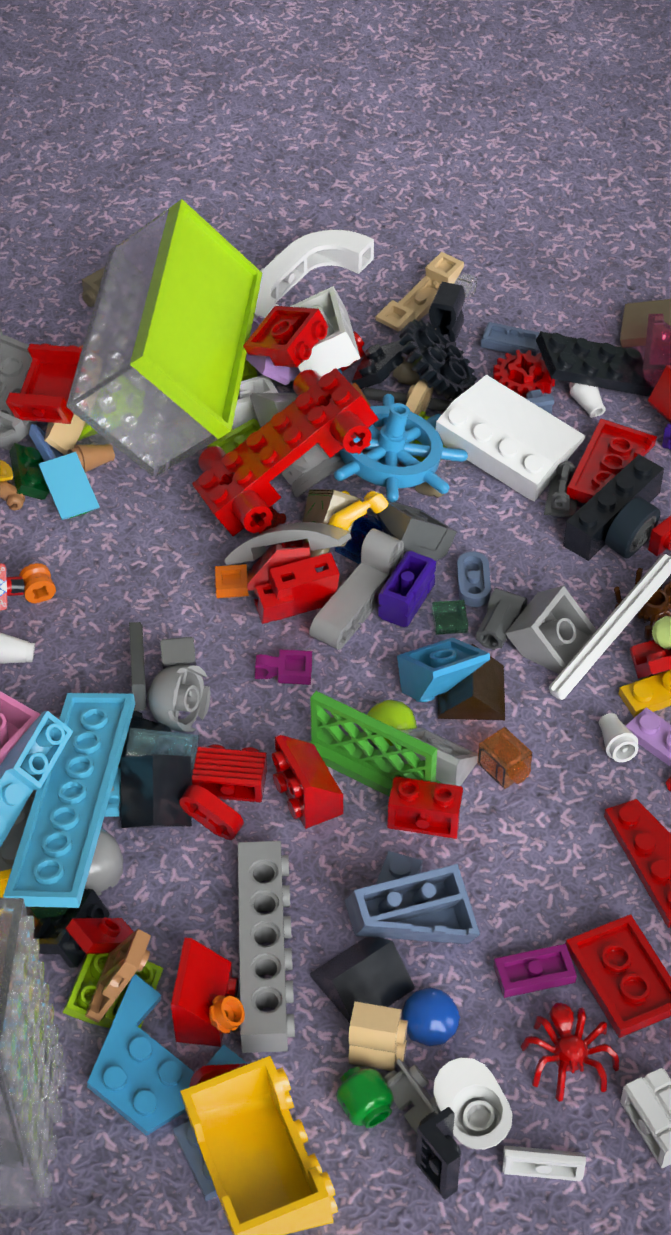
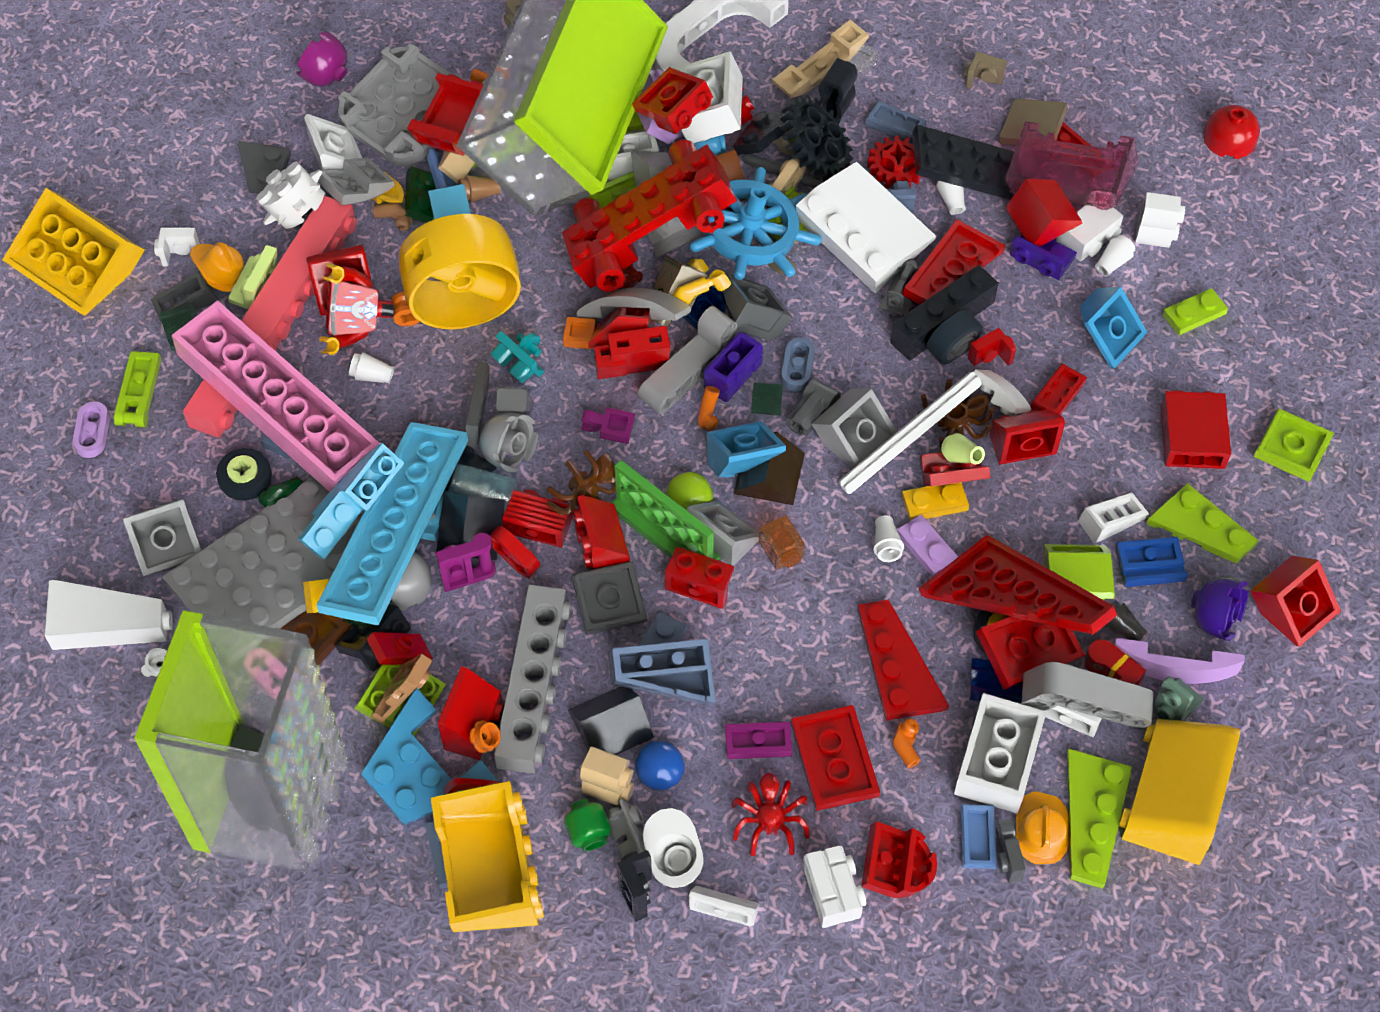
camera: 10 degrees right, 10 degrees up
(75, 510) = (473, 266): none -> yellow cylinder
(151, 831) = (456, 566): none -> magenta plate
(180, 618) = (507, 349): none -> teal hips
(295, 710) = (586, 484): none -> reddish brown animal
(329, 845) = (609, 598): none -> dark grey plate
(388, 630) = (707, 406): none -> orange arm
(589, 280) = (986, 68): none -> dark tan bracket

